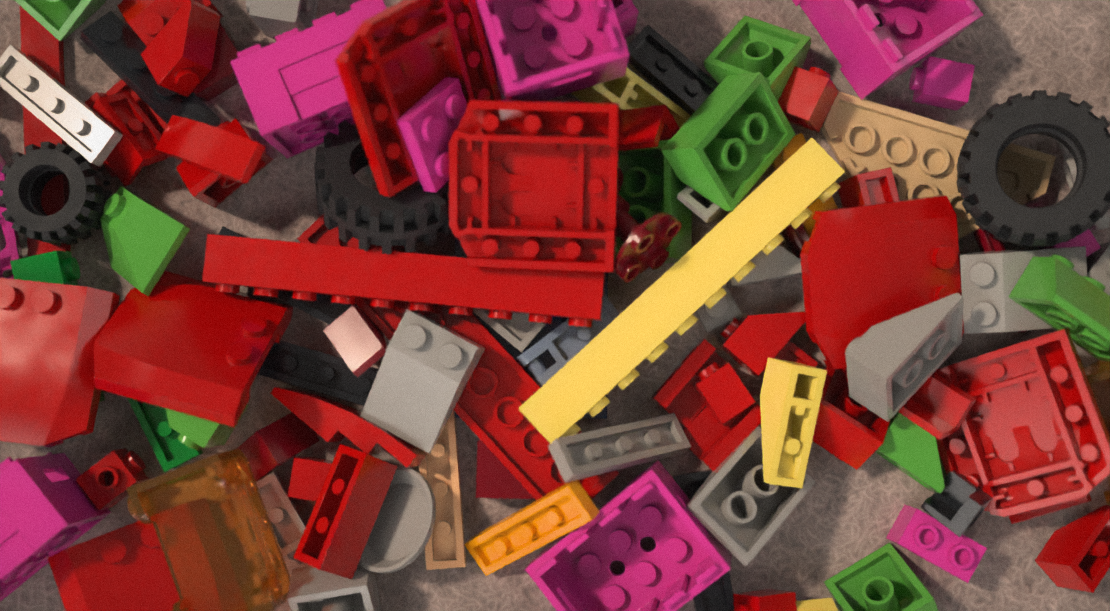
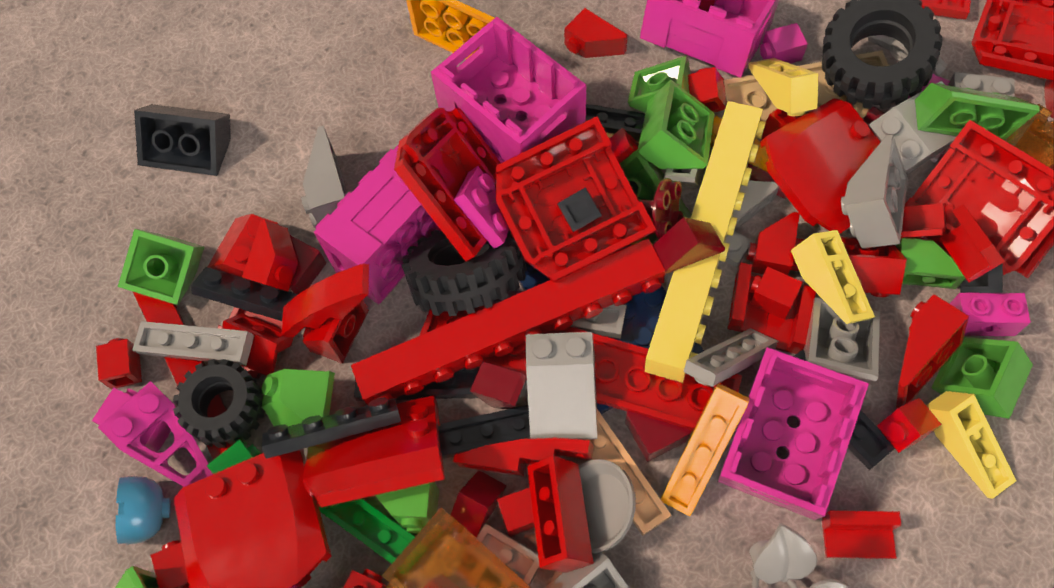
camera: 25 degrees left, 20 degrees down
(151, 297) = (319, 430): none -> black plate
(540, 201) = (579, 209): none -> black plate
(563, 345) = (646, 315): sand blue plate -> none
(643, 303) = (687, 243): none -> dark red slope
(845, 542) = (933, 338): none -> red slope
(899, 147) = (787, 85): none -> light yellow slope
(964, 468) = (970, 246): none -> red panel

